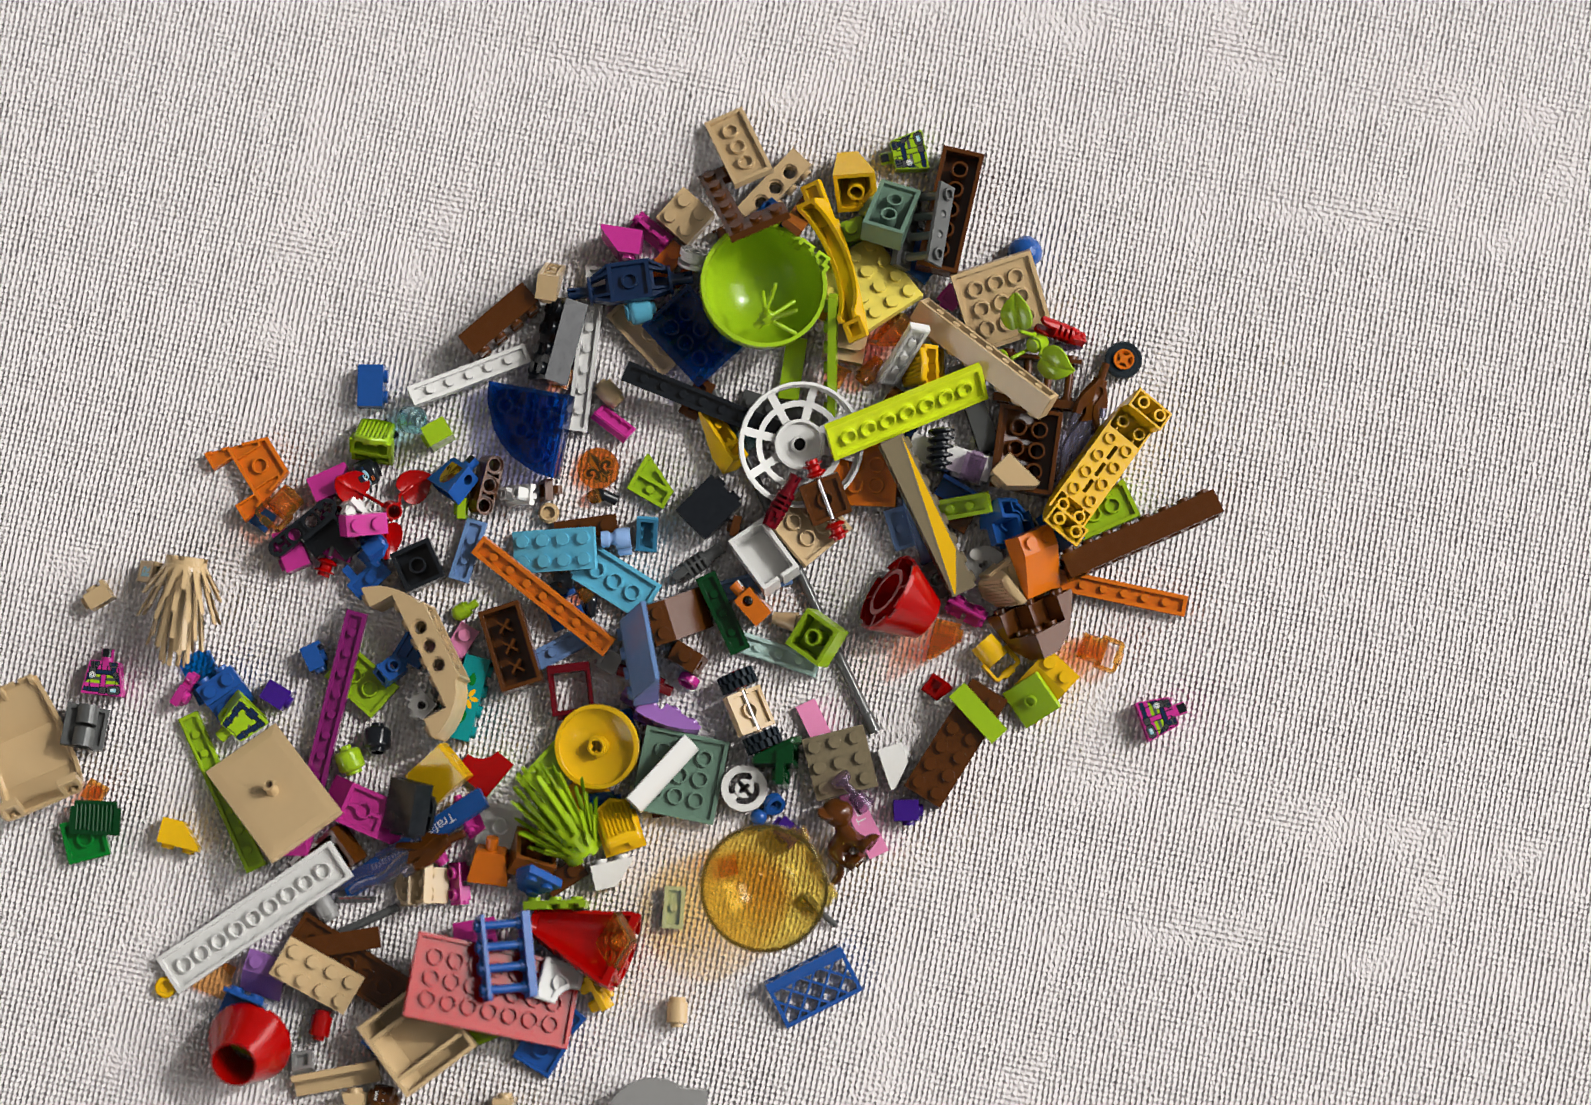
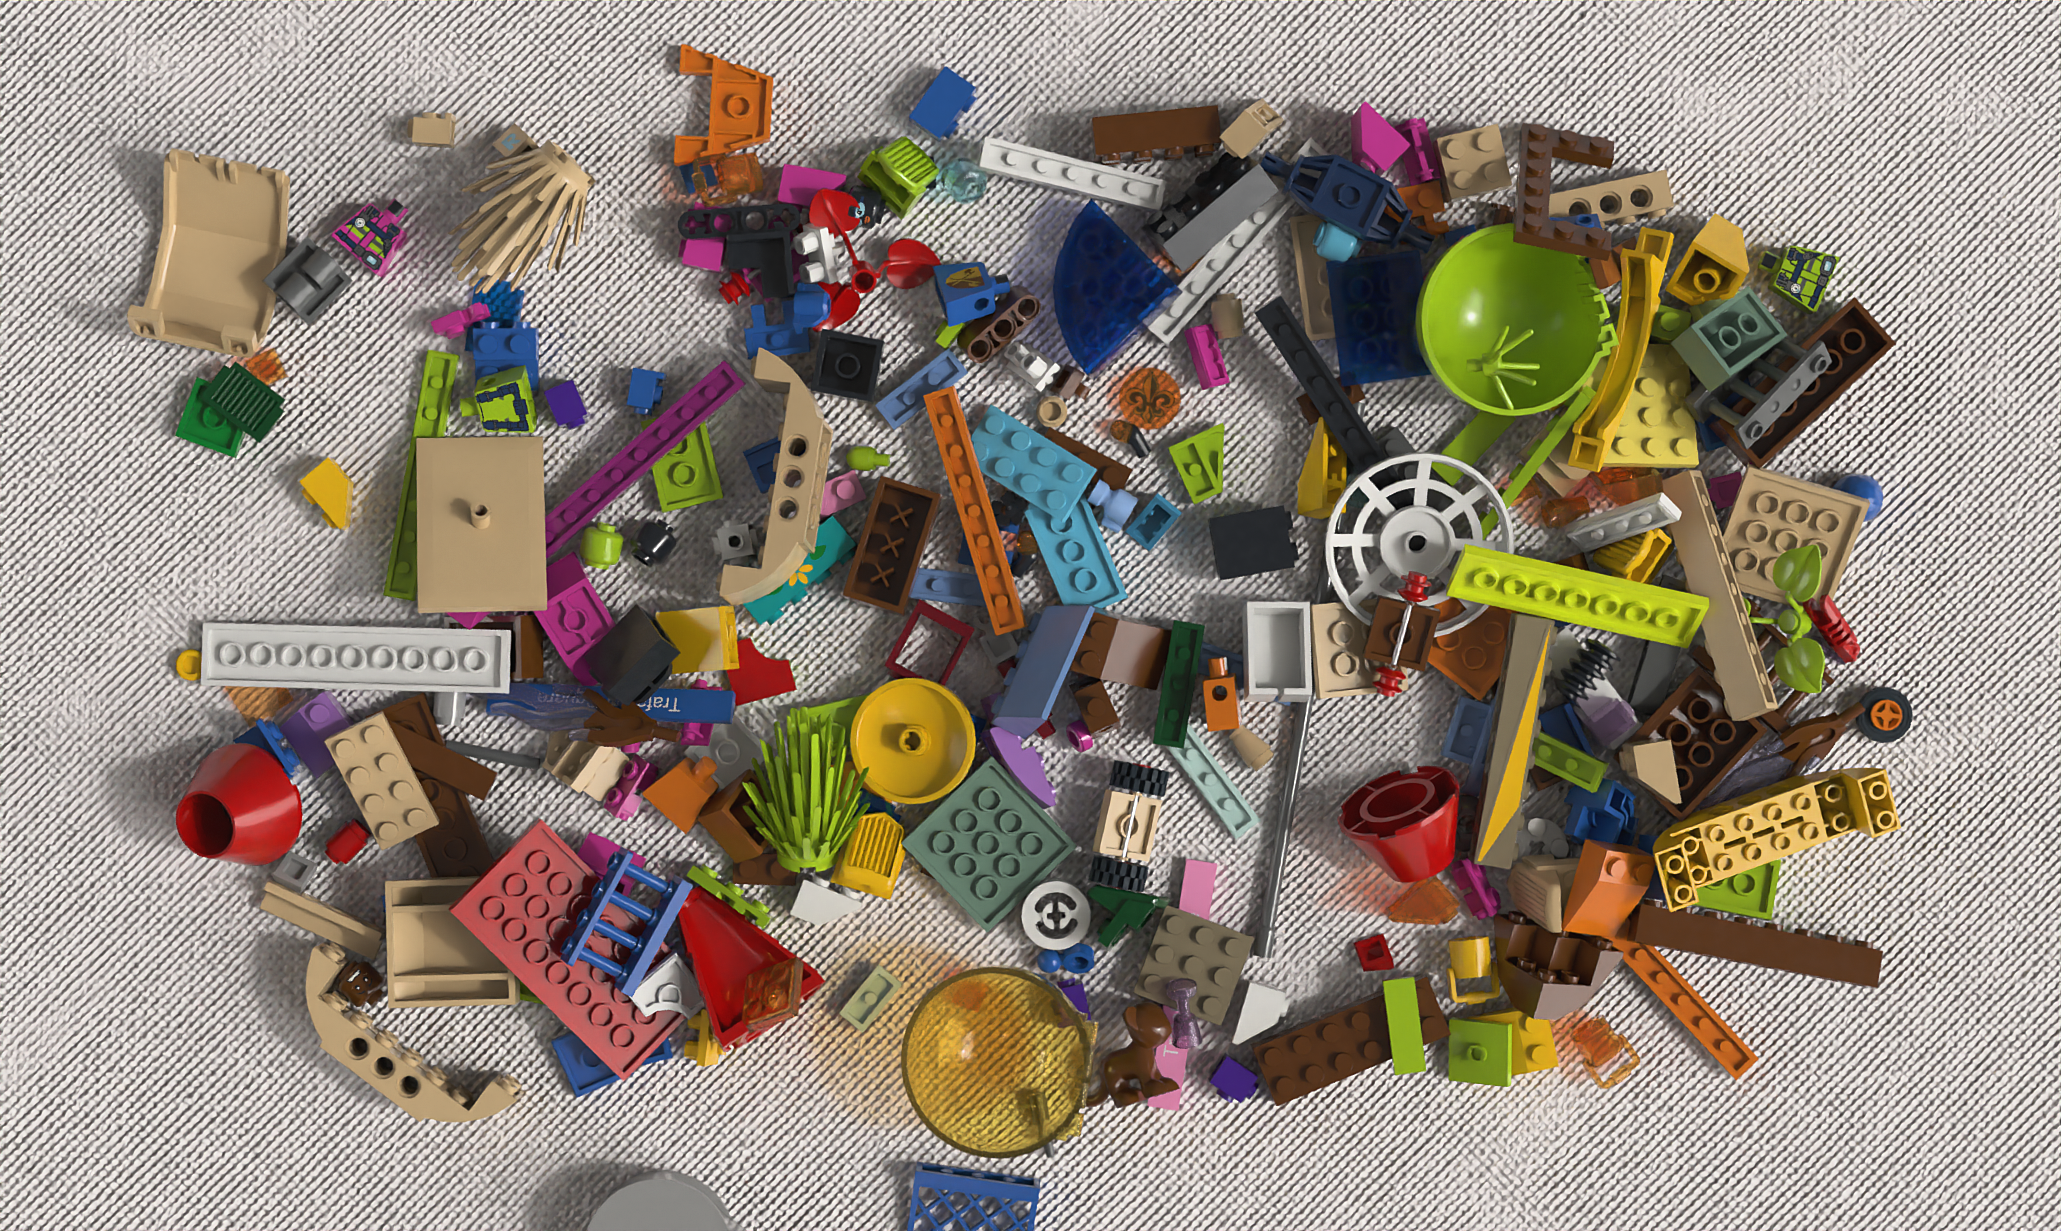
camera: 35 degrees right, 5 degrees up
(355, 899) = (492, 719): black sticker -> none
(363, 524) = (815, 270): dark pink brick -> none
(386, 674) = (718, 475): blue brick -> none
(437, 434) = (982, 220): lime brick -> none
(536, 881) = (725, 853): blue plate -> none
(662, 774) = (968, 829): white brick -> none
(677, 1011) = (787, 1126): tan brick -> none
(692, 258) = (1447, 222): white wheel -> none
(698, 563) = (1191, 601): dark grey hinge -> none
(734, 525) = (1266, 587): reddish brown plate -> none
(738, 147) = (1599, 123): tan plate -> none
(781, 502) = (1346, 601): dark red hinge -> none
(817, 637) = (1272, 795): lime brick -> none
(1158, 716) = (1618, 1179): torso -> none

